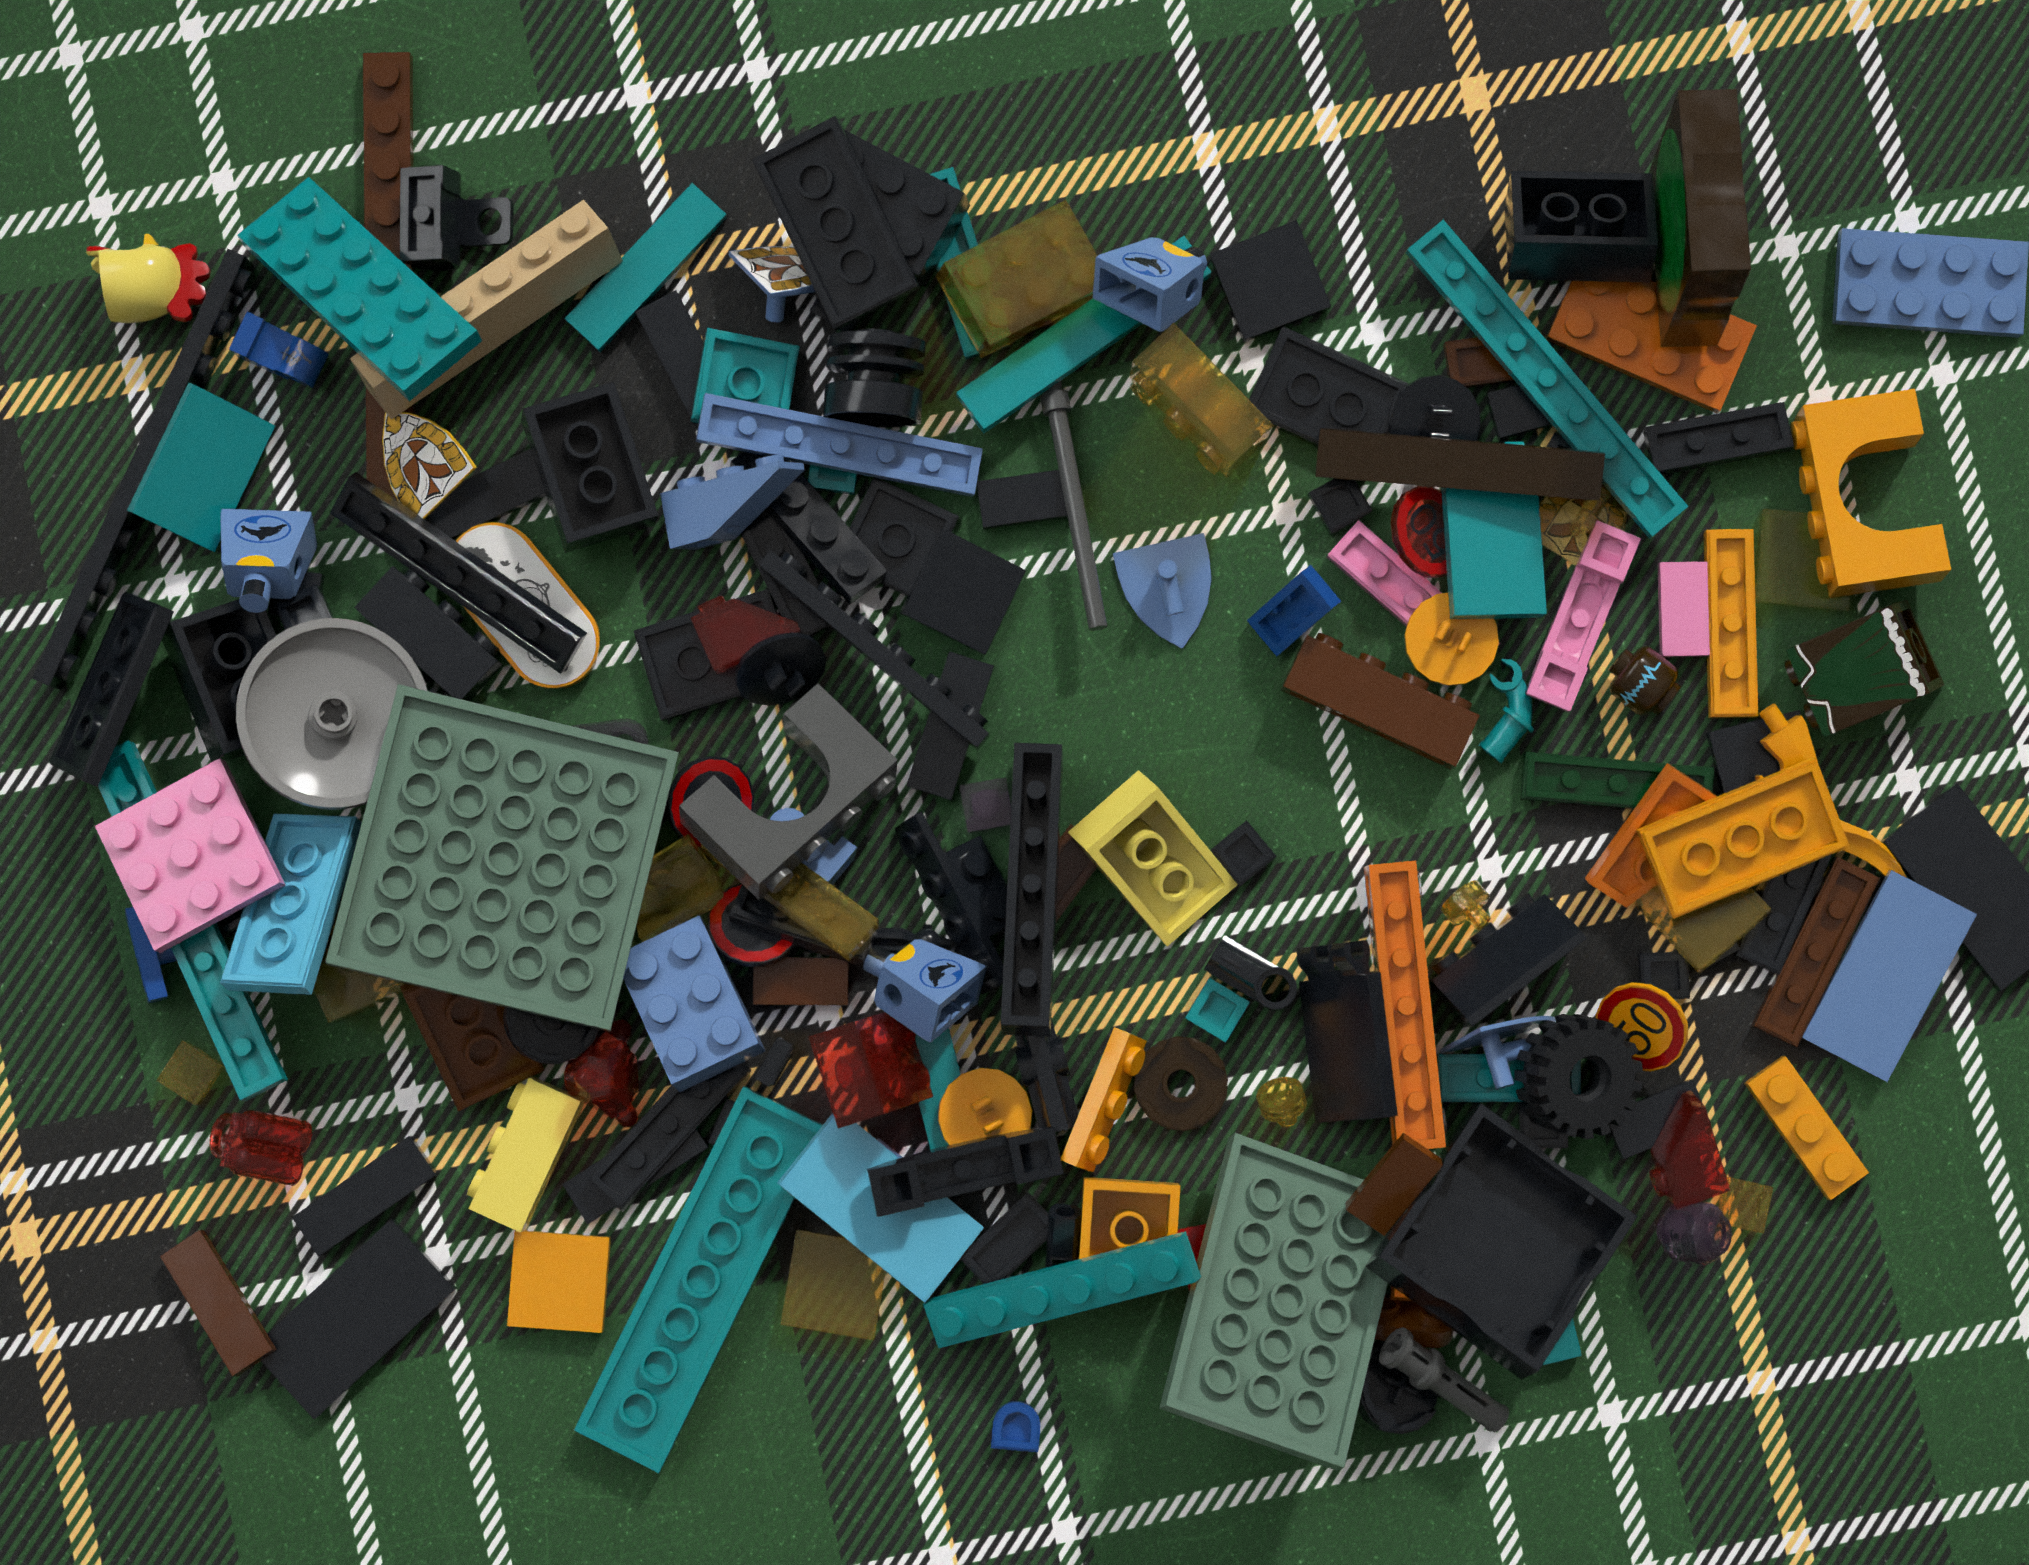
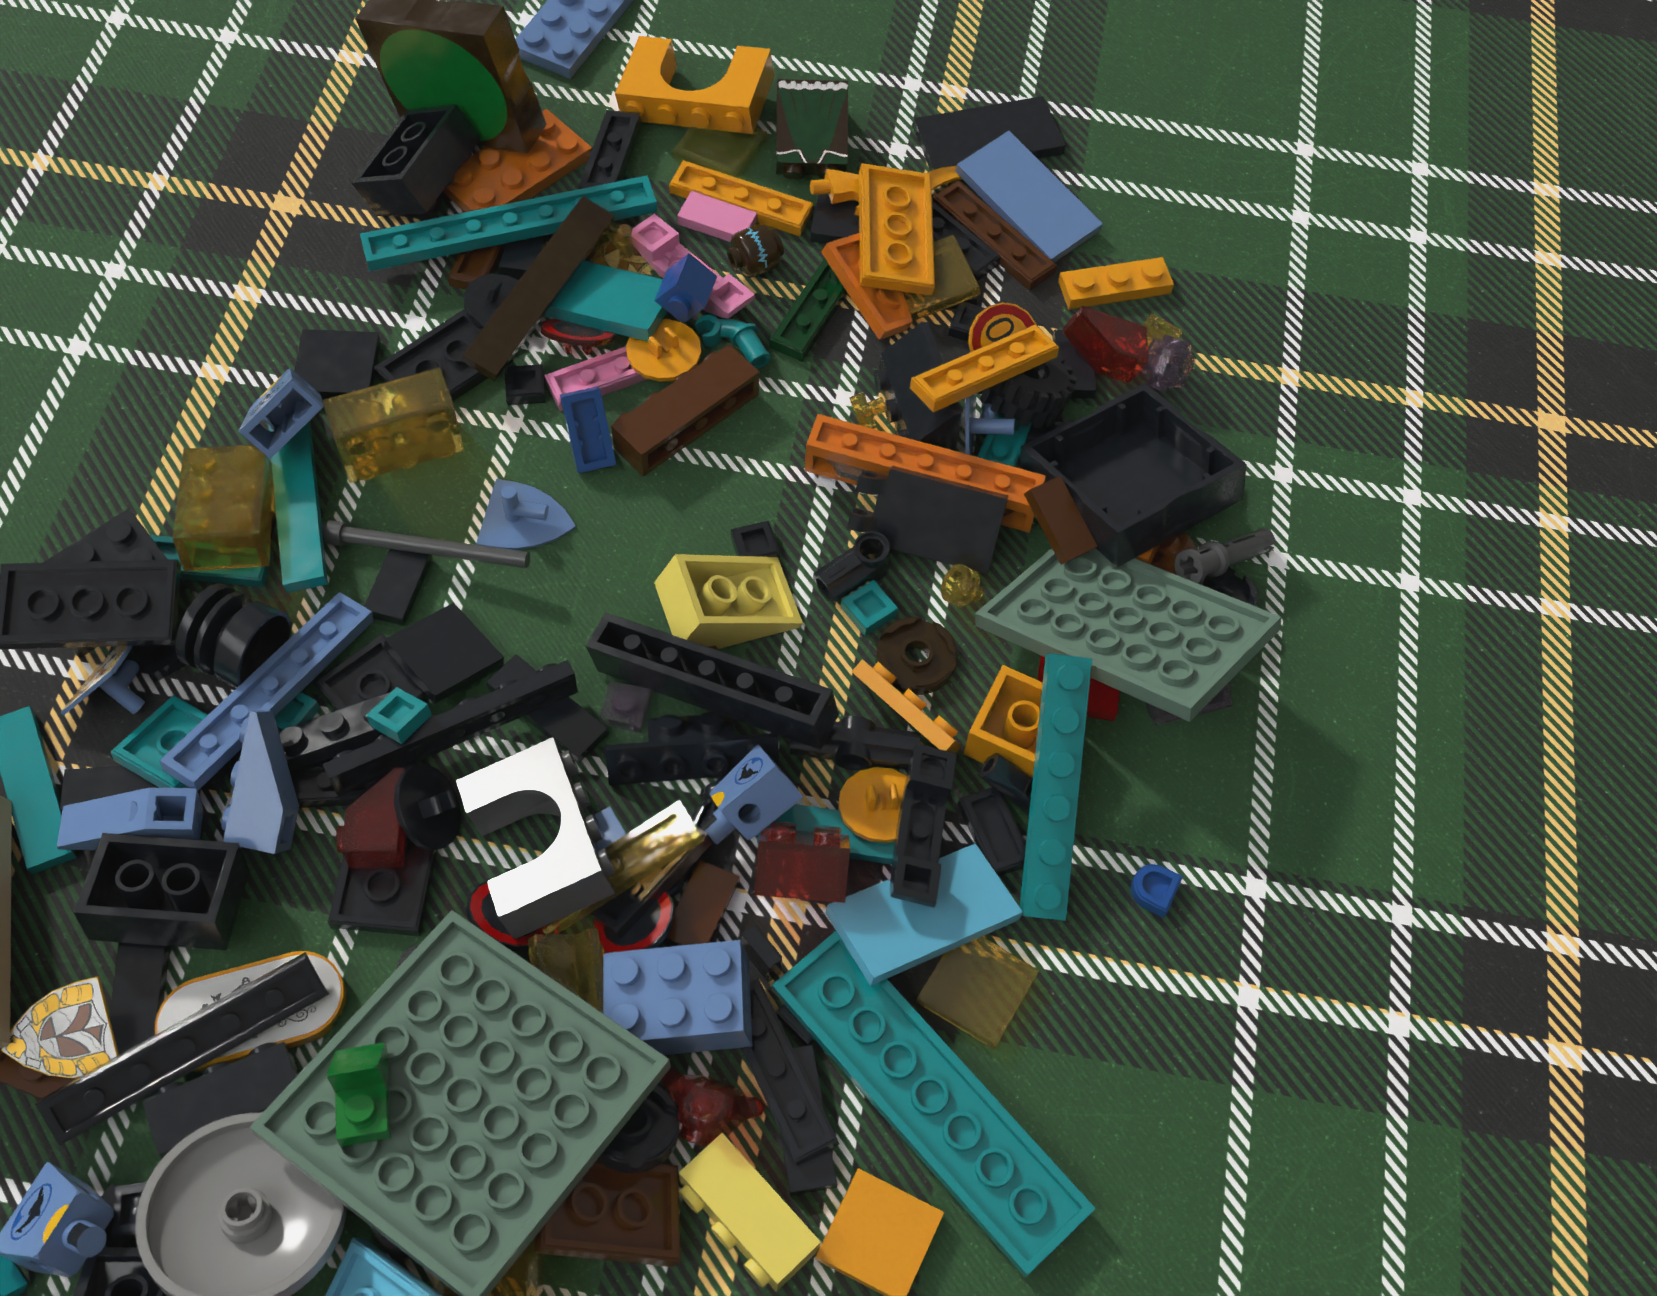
camera: 75 degrees left, 25 degrees down
(465, 768) = (361, 1094): none -> green slope
(644, 391) = (140, 813): none -> medium blue slope
(851, 597) = (399, 715): none -> teal tile
(1530, 632) = (686, 288): none -> blue brick
(1545, 1030) = (984, 368): none -> light orange tile

